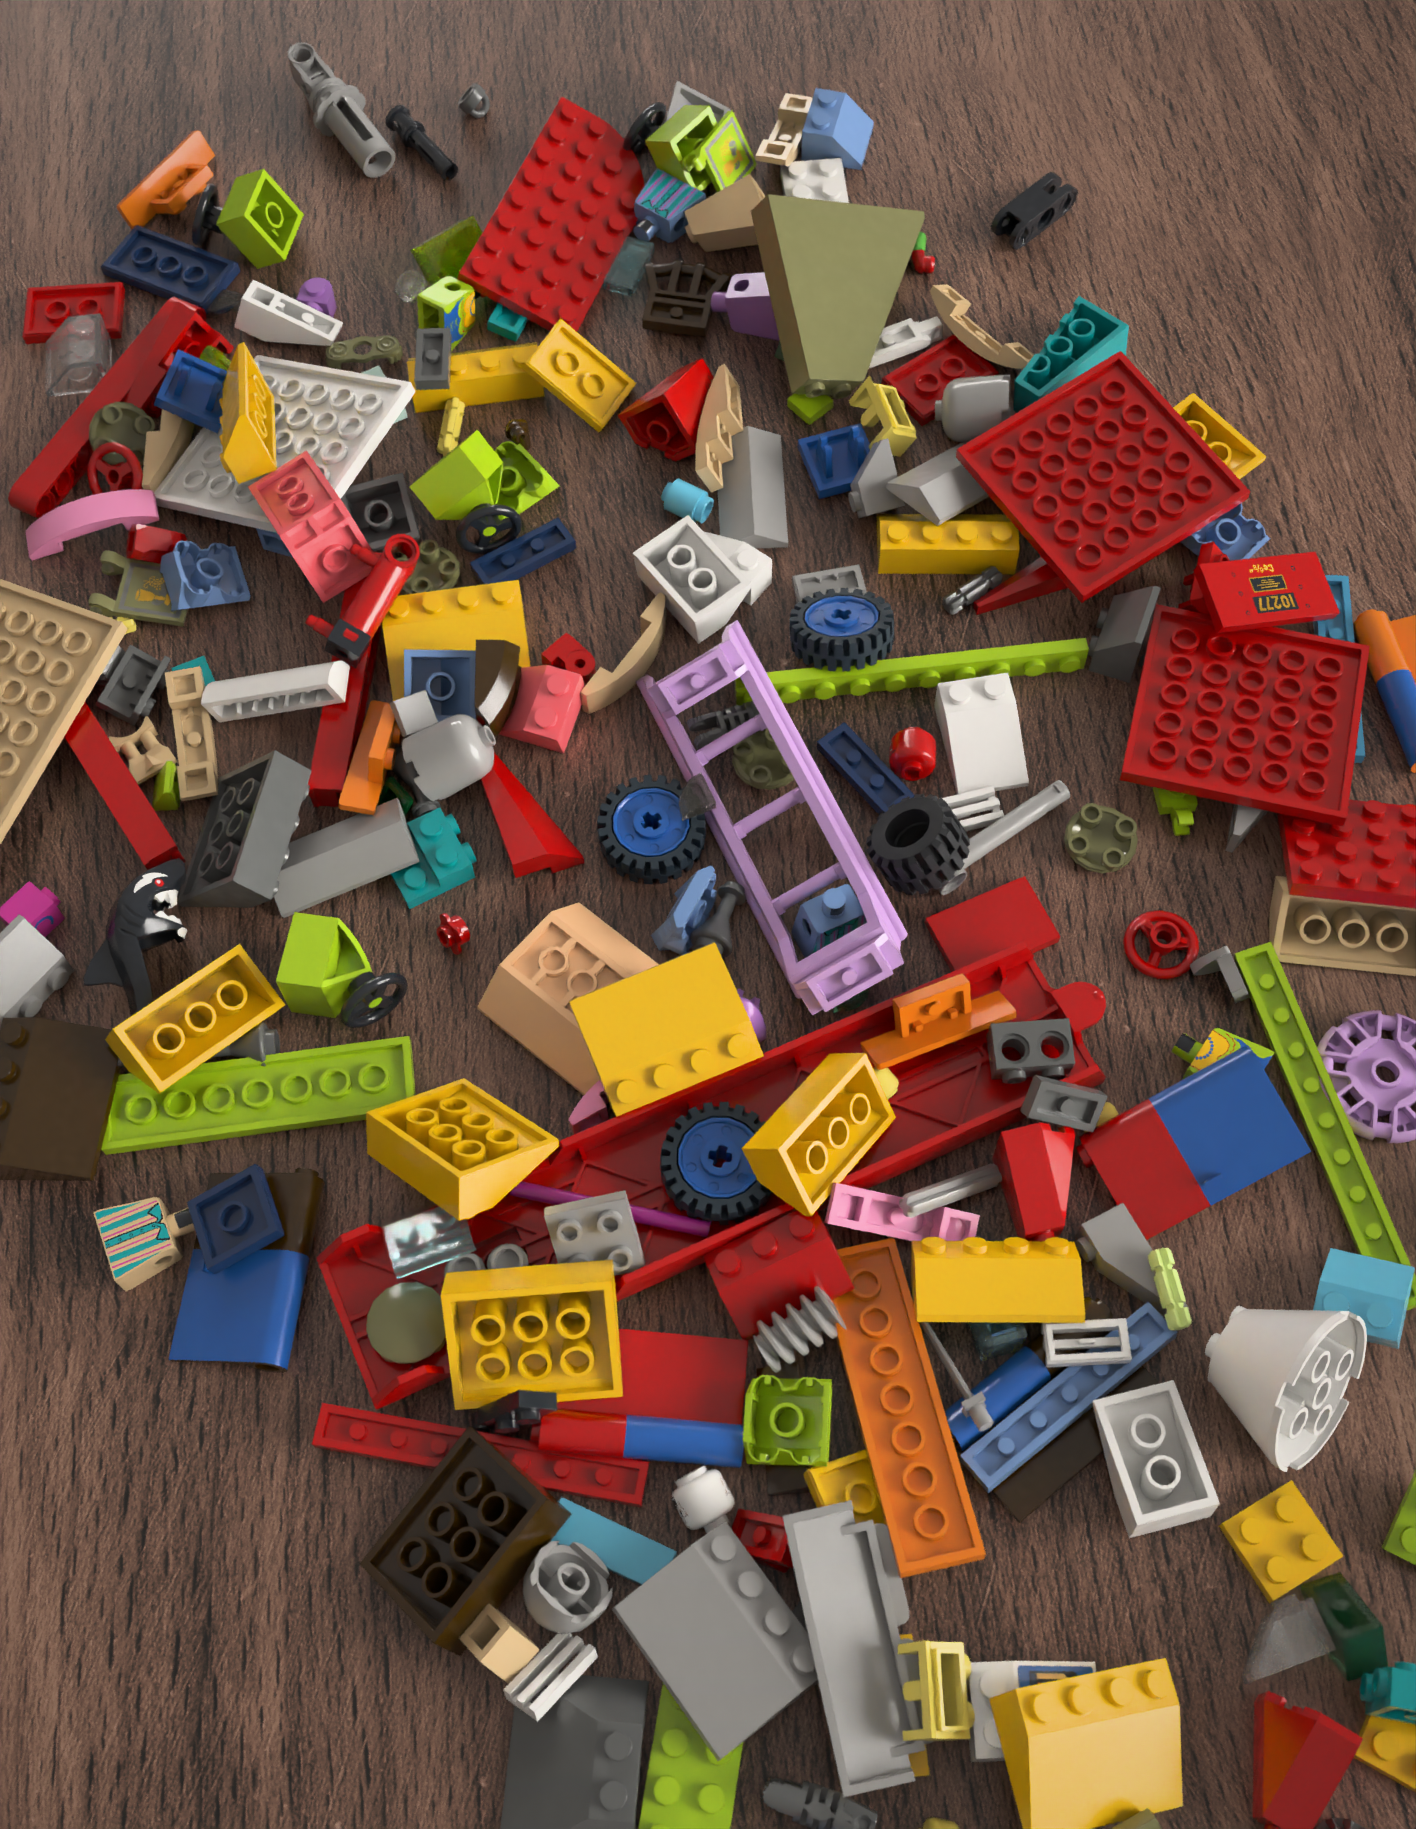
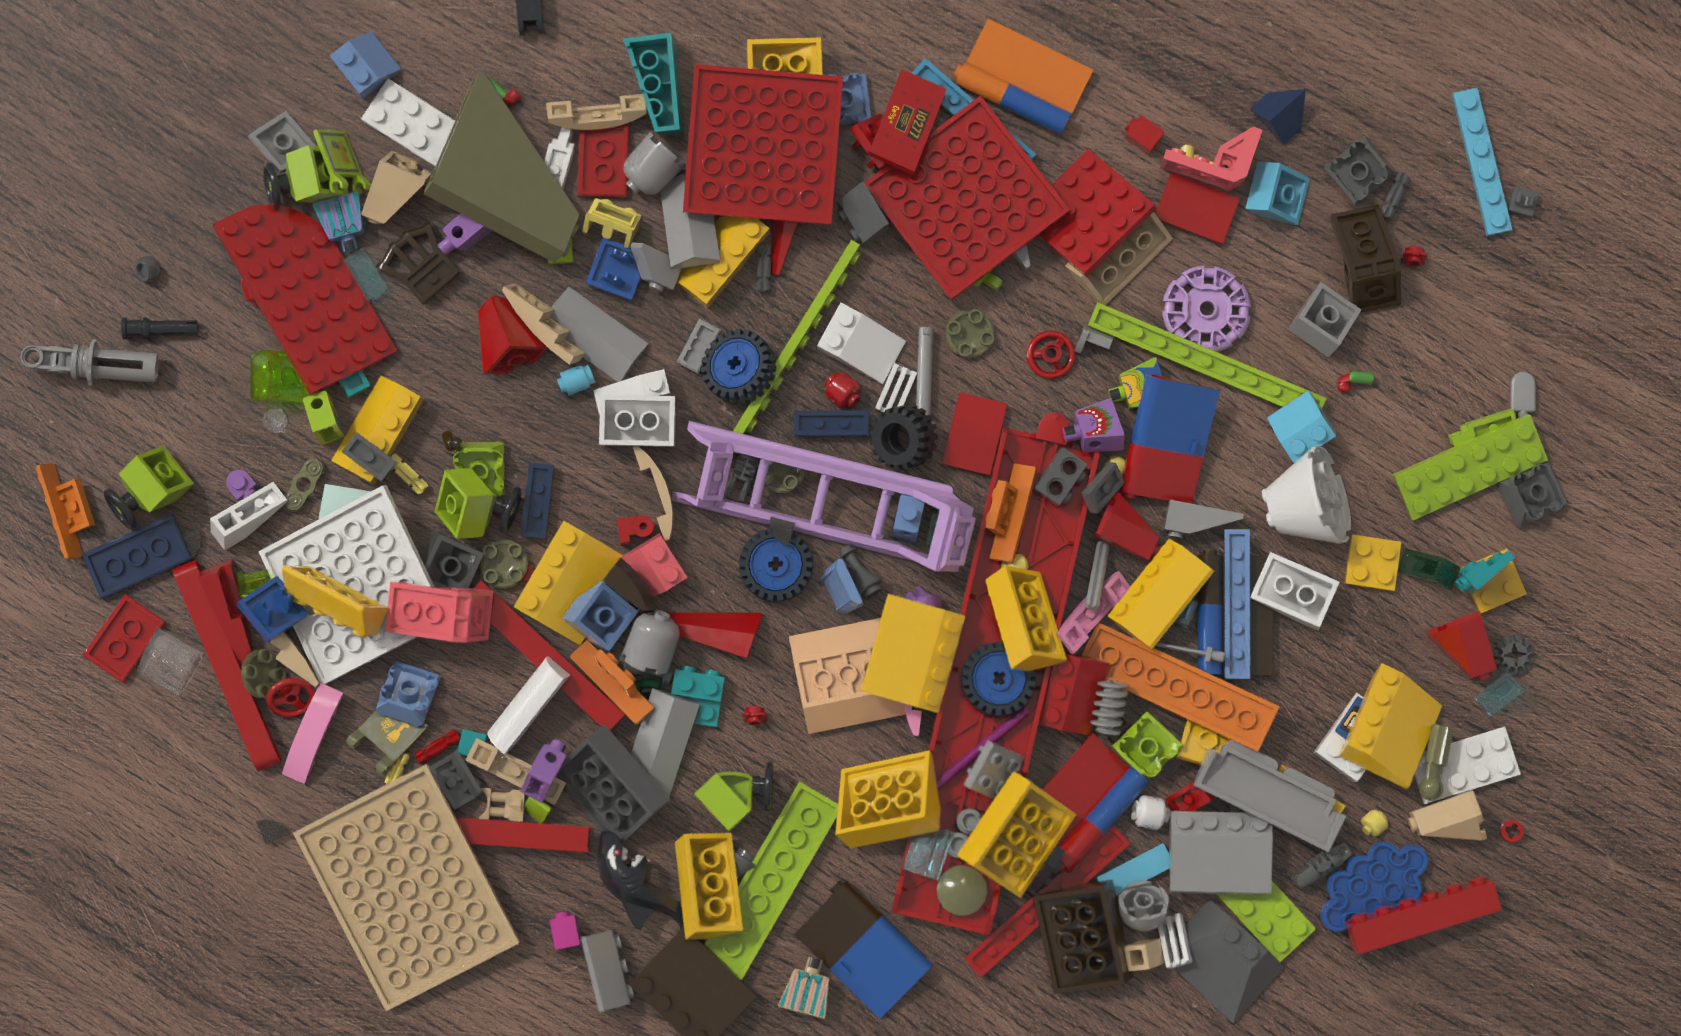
camera: 50 degrees left, 20 degrees up
(151, 543) = (359, 707): red rock -> none
(164, 646) = (437, 747): none -> red axle
(207, 747) = (544, 770): none -> medium lavender torso
(235, 1219) = (837, 937): dark blue plate -> none
(353, 632) = (521, 615): red piece -> none
(413, 713) = (613, 644): light grey tile -> none
(579, 375) = (438, 374): yellow tile -> none
(787, 134) = (341, 97): tan slope -> none
(941, 1691) = (1319, 774): light yellow window -> none
(1083, 1359) = (1209, 594): white tile -> none
(1126, 1048) = (1096, 428): none -> medium lavender torso
(1169, 1289) = (1228, 516): yellowish green axle -> none
(1287, 1638) = (1414, 600): clear slope -> none

